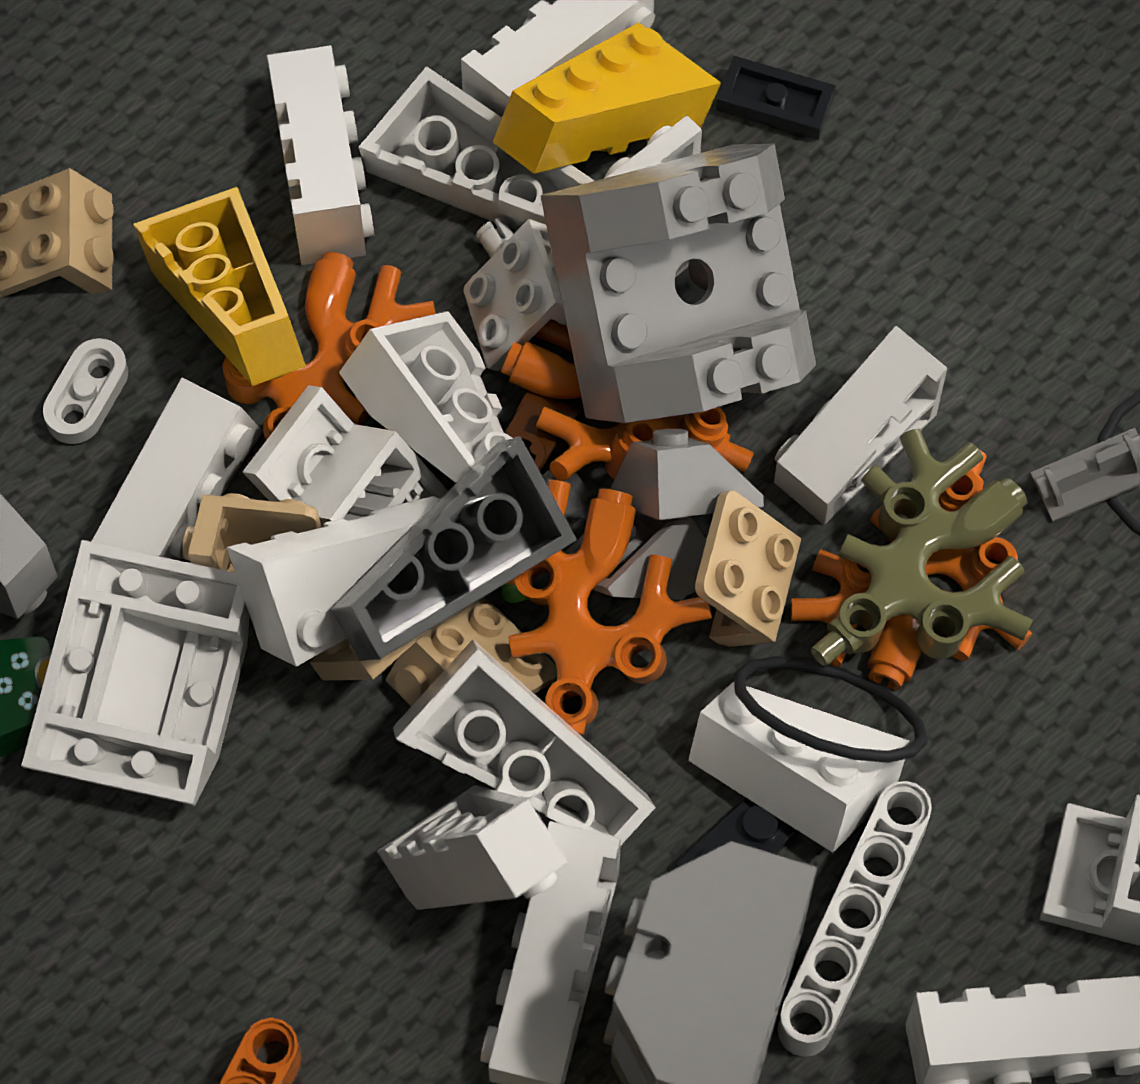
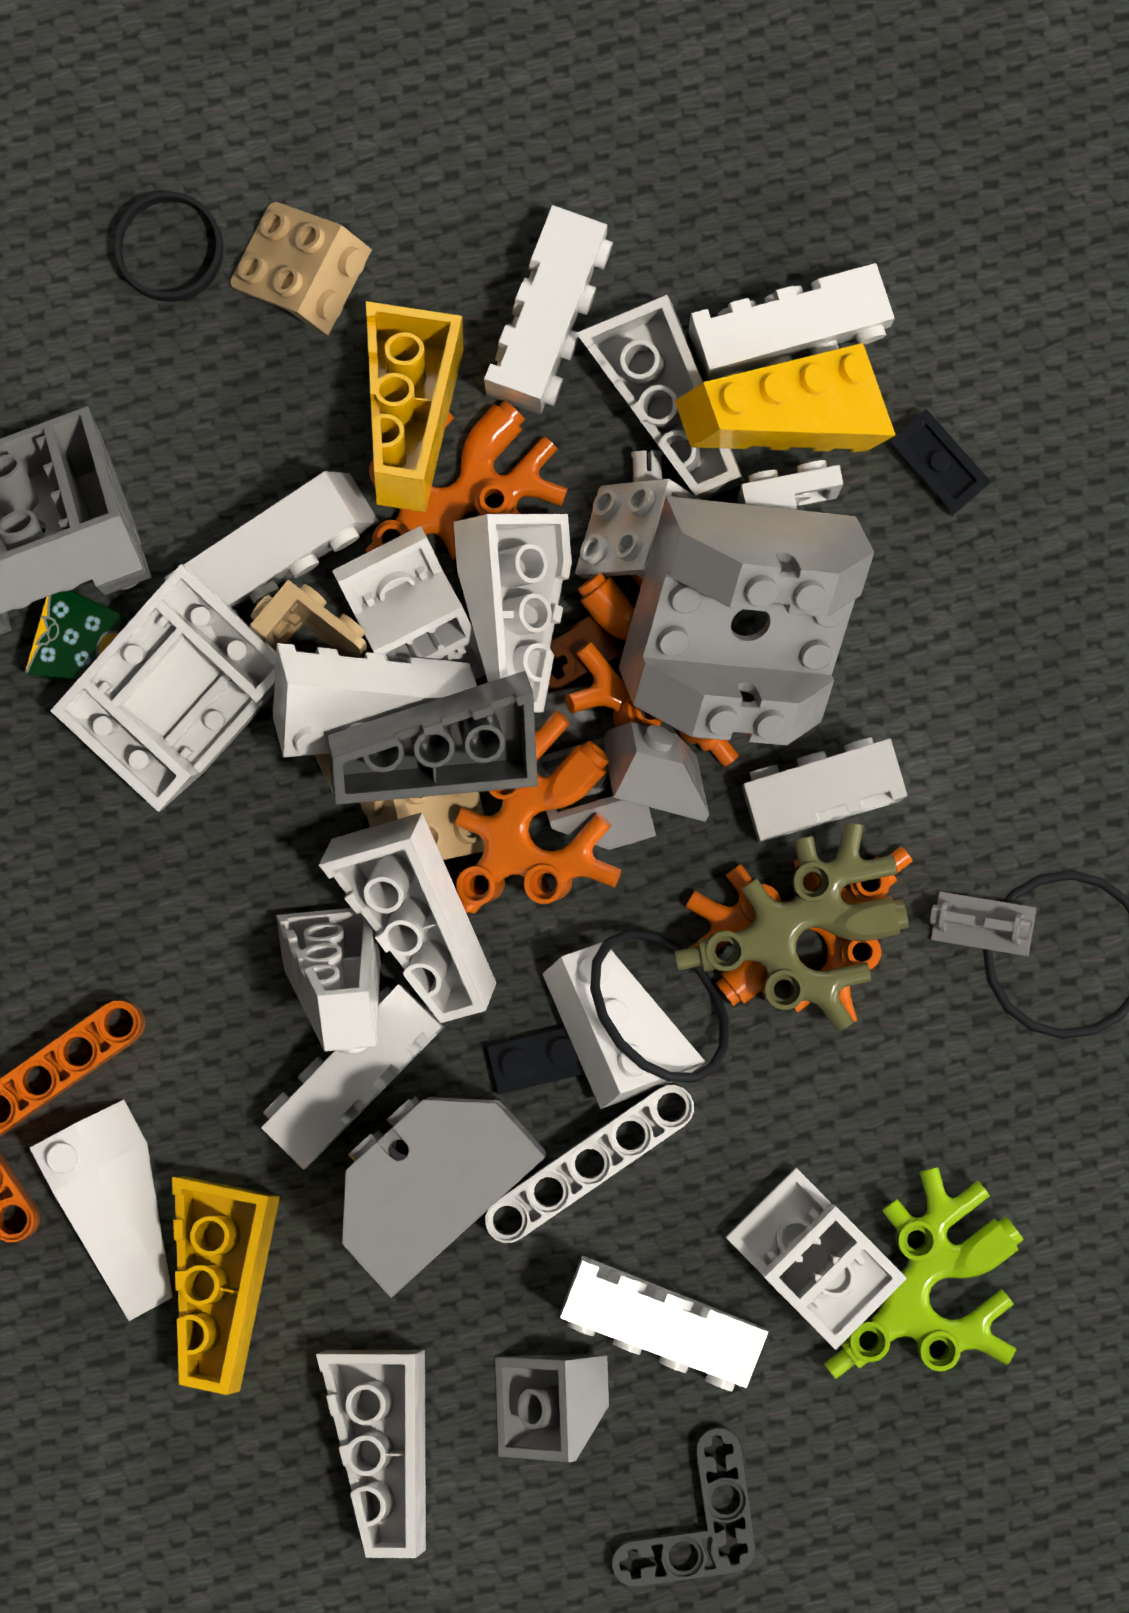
camera: 30 degrees right, 20 degrees up
(83, 393) = (258, 412): white plate -> none
(746, 571) = (664, 861): tan bracket -> none

